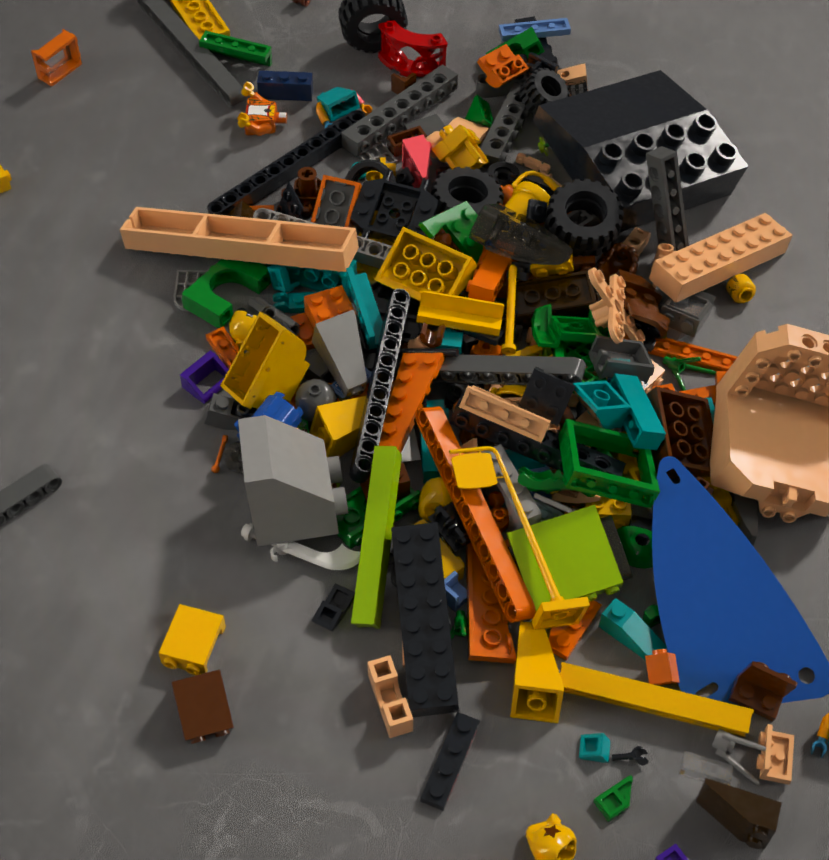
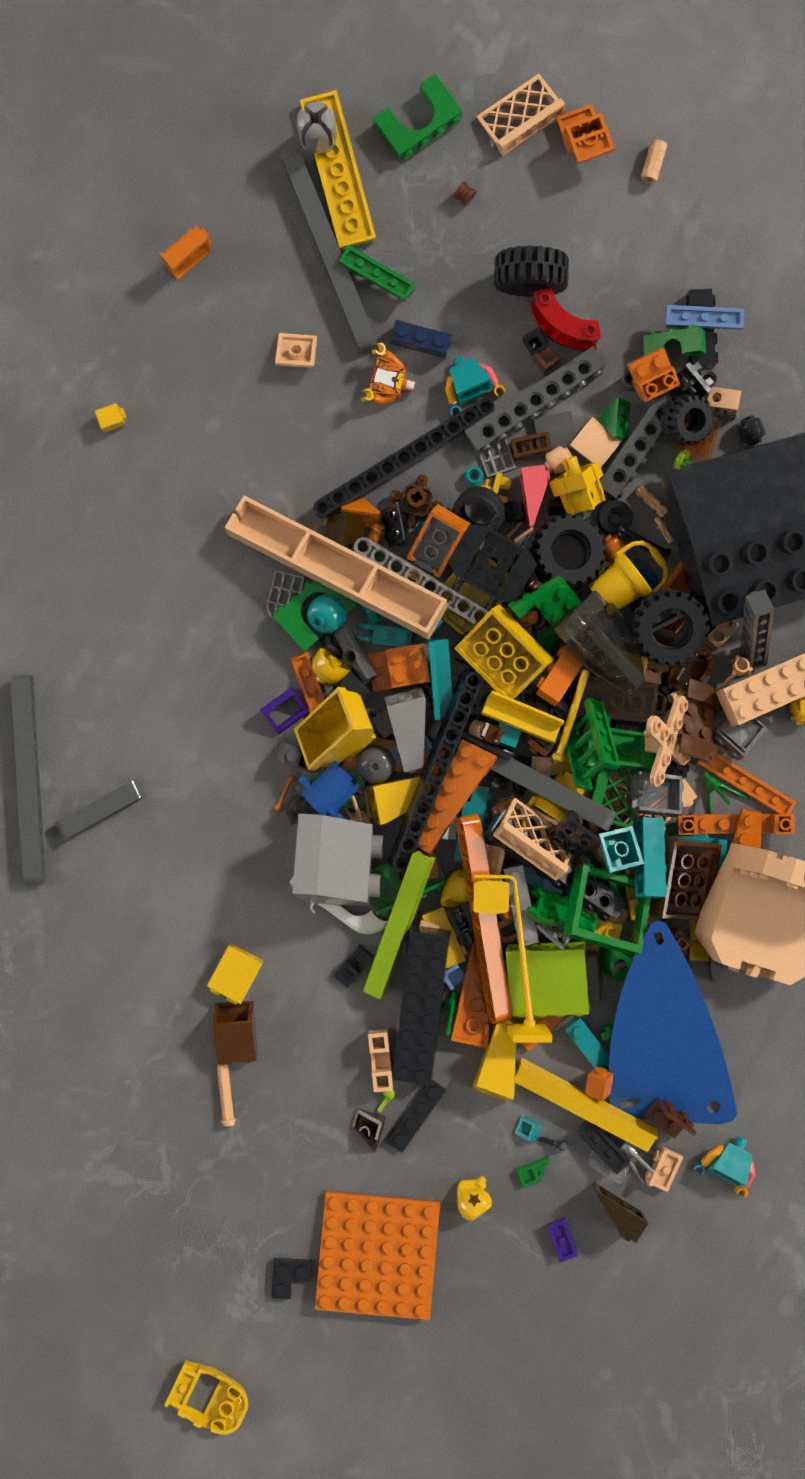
camera: 15 degrees right, 35 degrees up
(170, 111) = (296, 350): none -> light nougat slope
(209, 813) = (225, 1095): none -> light nougat axle
(237, 286) = (326, 614): none -> teal cylinder
(385, 74) = (535, 341): none -> black slope
(393, 785) = (369, 1126): none -> dark brown slope
(411, 742) = (389, 1096): none -> lime hand
(536, 210) = (627, 606): black bracket -> none
(549, 310) = (603, 744): none -> green fence
(692, 743) = (603, 1146): none -> black plate

